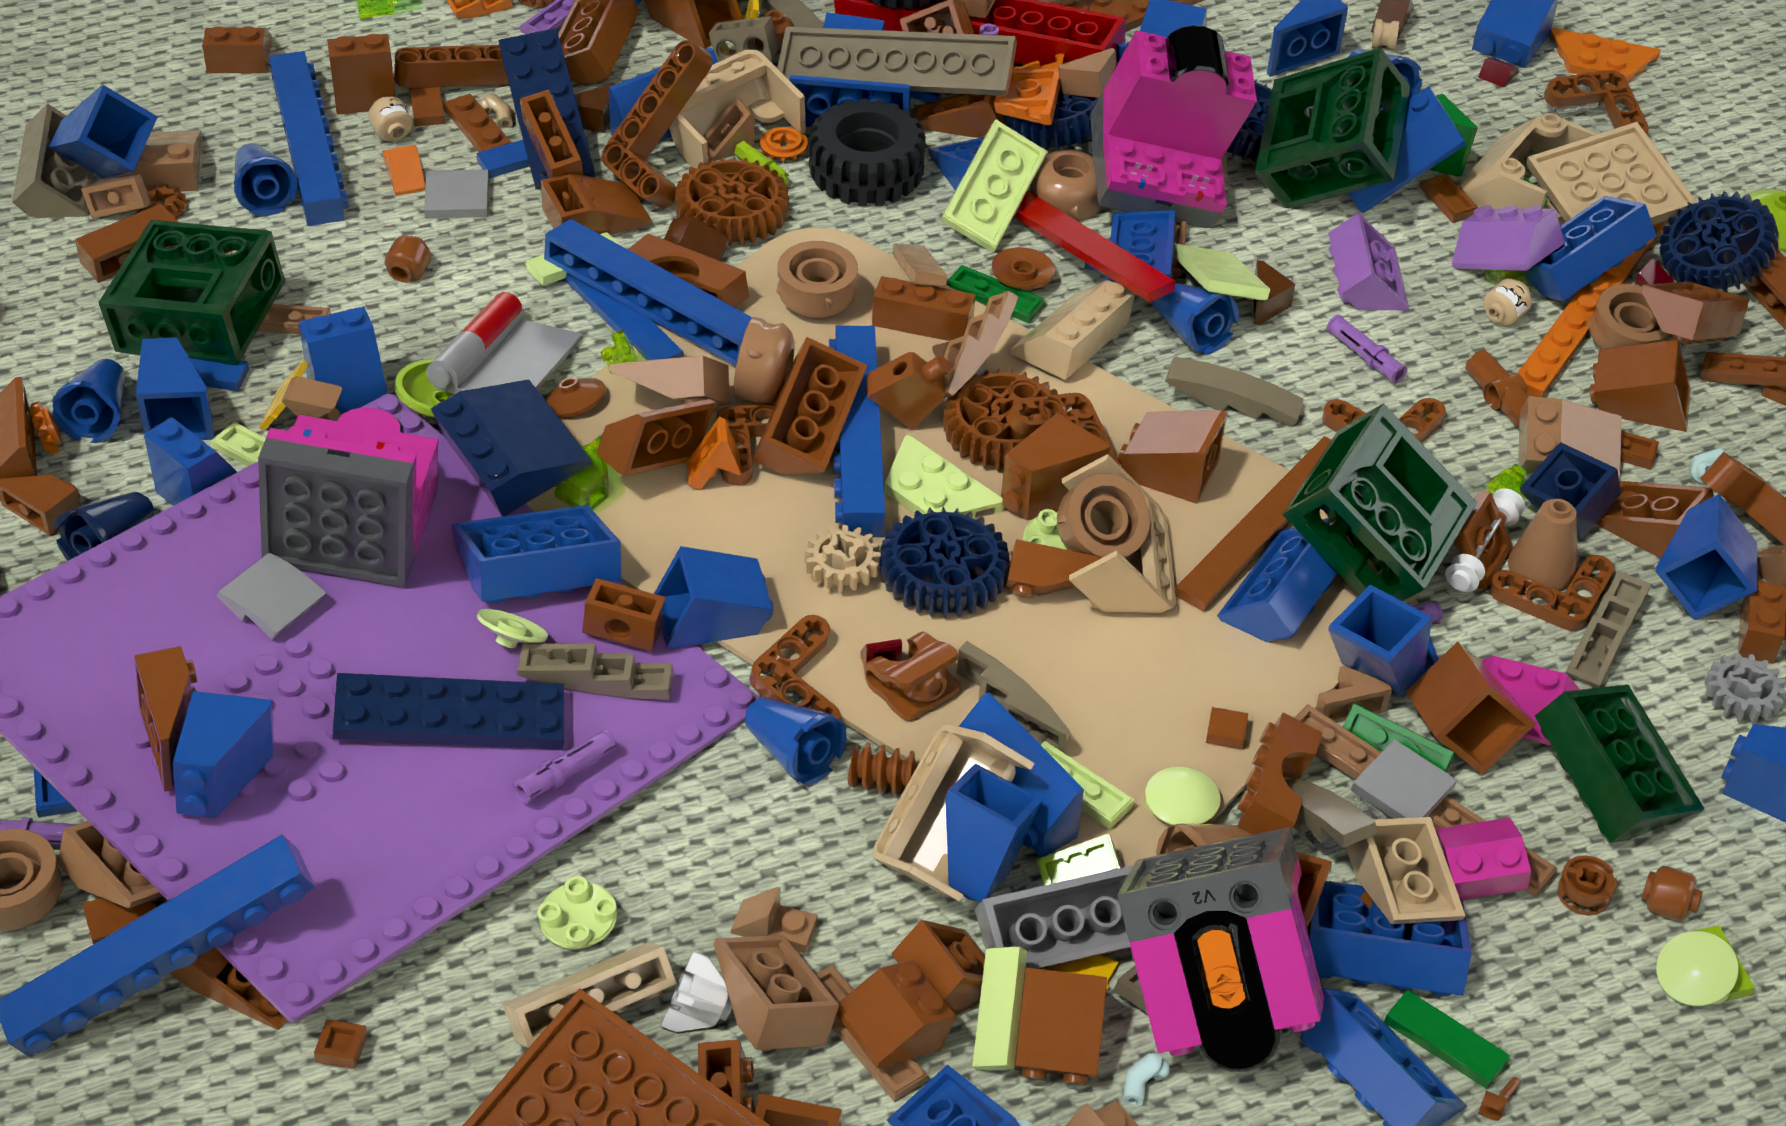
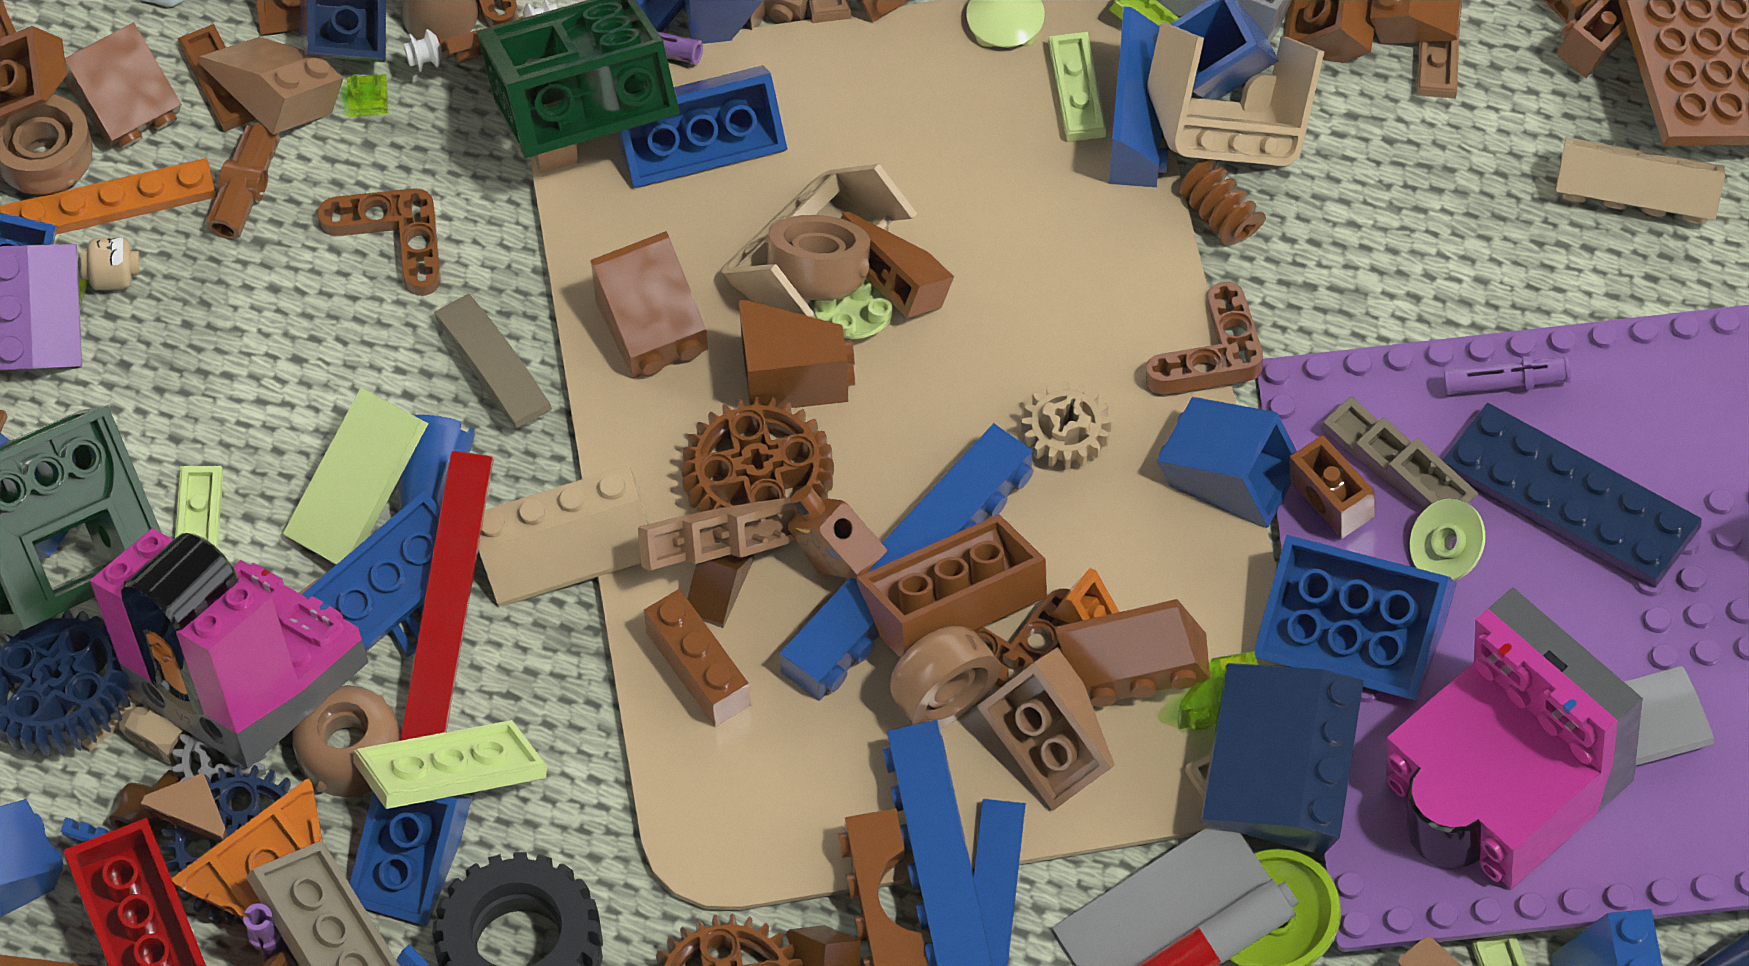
camera: 135 degrees left, 15 degrees up
(575, 396) = (1117, 827): dark orange dish -> none
(577, 914) = (1587, 269): yellowish green dish -> none
(621, 353) = (1055, 828): clear neon green tile -> none
(700, 998) = (1551, 119): white brick -> none
(766, 917) = (1433, 155): medium nougat slope -> none
(775, 993) = (1495, 74): medium nougat slope -> none
(797, 737) = (1275, 285): blue cone -> none
(817, 278) = (770, 737): medium nougat piece -> none
(888, 649) = (1123, 309): dark red slope -> none
(918, 682) = (1123, 248): dark orange piece -> none
(919, 265) = (642, 715): medium nougat tile -> none
(927, 480) = (894, 453): yellowish green wing -> none
(944, 562) = (978, 355): dark blue gear -> none
(985, 286) = (576, 665): green tile -> none
(1013, 695) = (1061, 175): dark tan slope -> none
(1023, 268) = (519, 644): dark orange dish -> none
(1081, 414) = (713, 398): dark orange beam -> none
(1227, 727) = (900, 45): dark orange tile -> none
(1247, 538) = (636, 202): dark orange tile -> none
(1280, 293) = (309, 446): reddish brown slope -> none
(1283, 234) = (200, 501): none -> yellowish green tile
(1366, 267) = (185, 406): medium lavender slope -> none
(1375, 355) = (306, 307): medium lavender pin -> none

